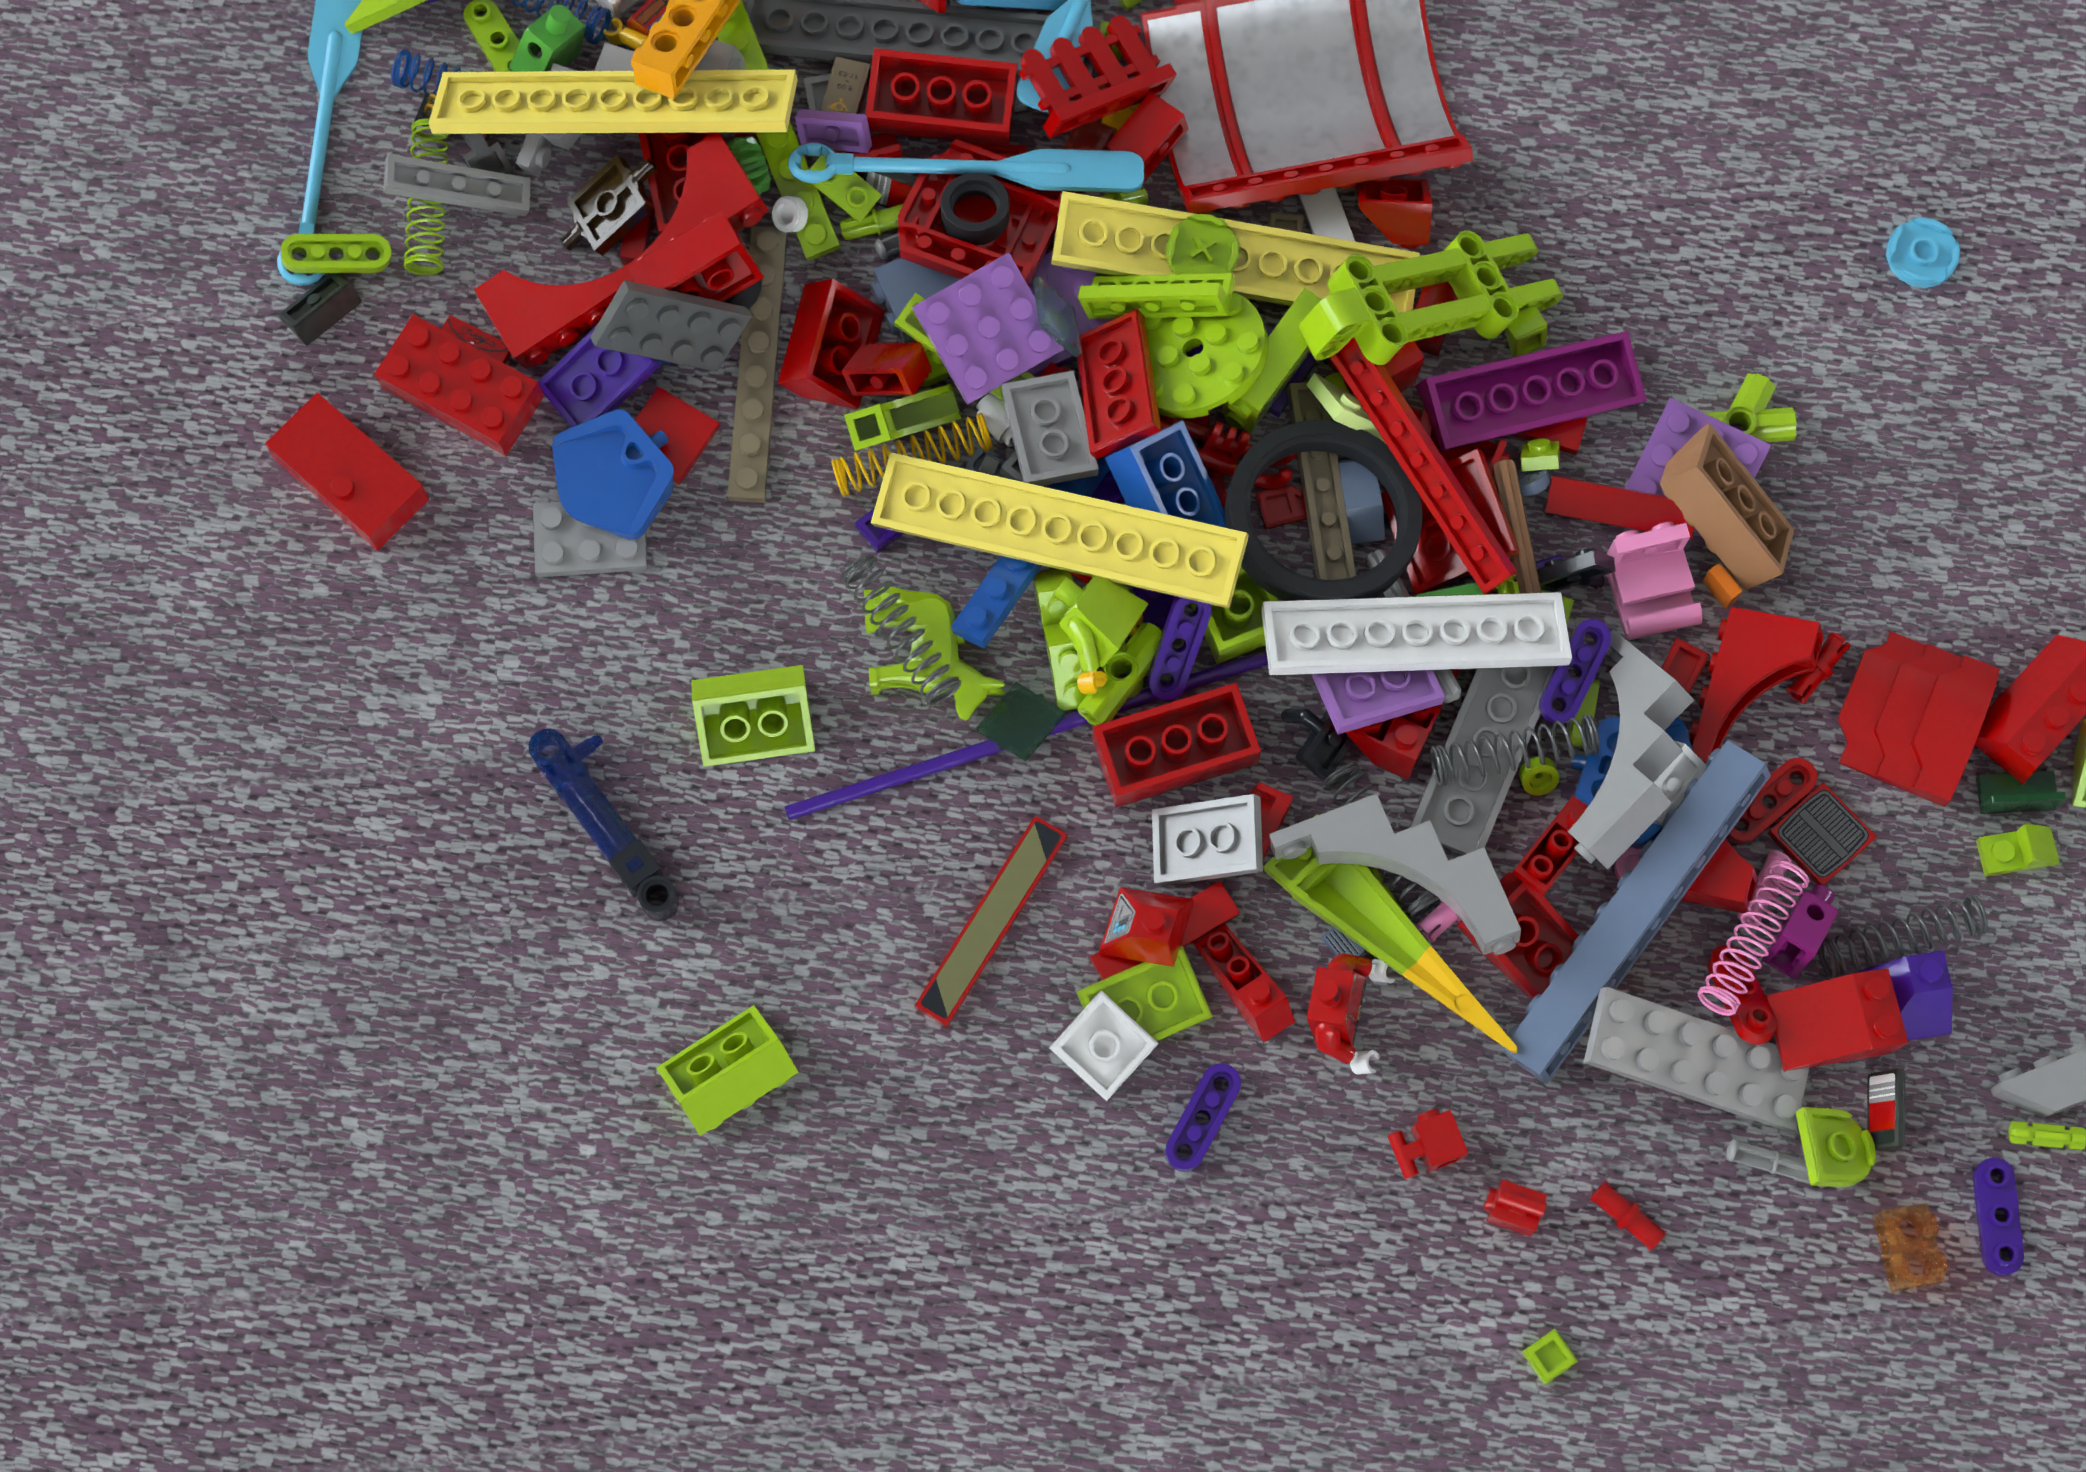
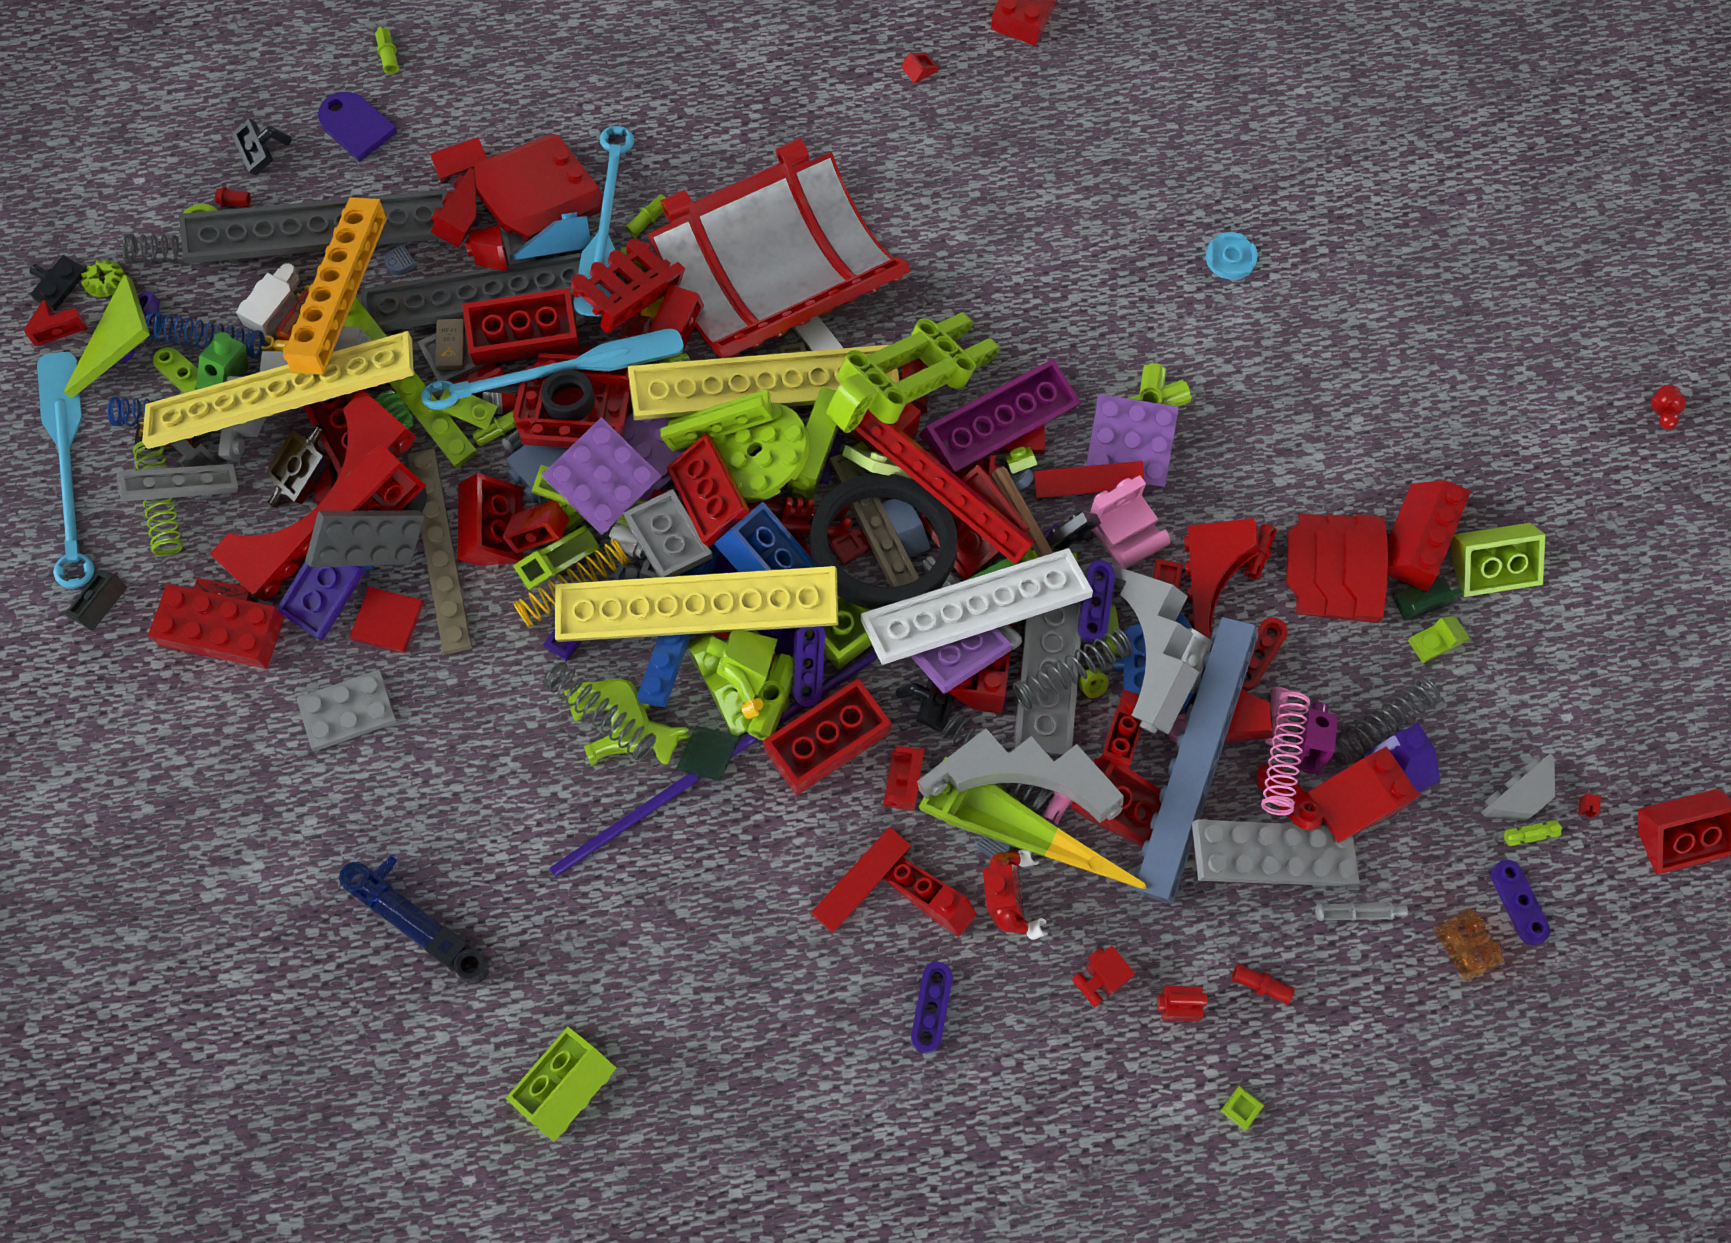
camera: 20 degrees left, 5 degrees down
(347, 471) = (145, 714): red brick -> none
(351, 247) = (83, 556): lime plate -> none
(612, 474) = (351, 659): blue animal -> none
(752, 715) = (506, 807): lime slope -> none
(790, 214) = (433, 437): white tile -> none
(834, 129) = (449, 368): medium lavender plate -> none
(990, 921) = (729, 909): olive tile -> none
(1056, 316) = (649, 454): clear light blue piece -> none
(1103, 1045) = (841, 976): white tile -> none
(1146, 926) = (846, 876): red slope -> none
(1155, 996) = (862, 935): lime tile -> none
(1202, 246) = (738, 378): lime tile -> none
(1207, 840) = (872, 799): plate -> none
(1398, 209) = (869, 319): red slope -> none
(1527, 332) = (984, 378): lime slope -> none
(1722, 586) = (1175, 514): orange tile -> none
(1728, 508) = (1164, 458): medium nougat slope -> none
(1821, 835) = (1303, 666): tile -> none
(1834, 1147) = (1391, 887): lime tile -> none
(1886, 1109) = (1417, 849): slope -> none

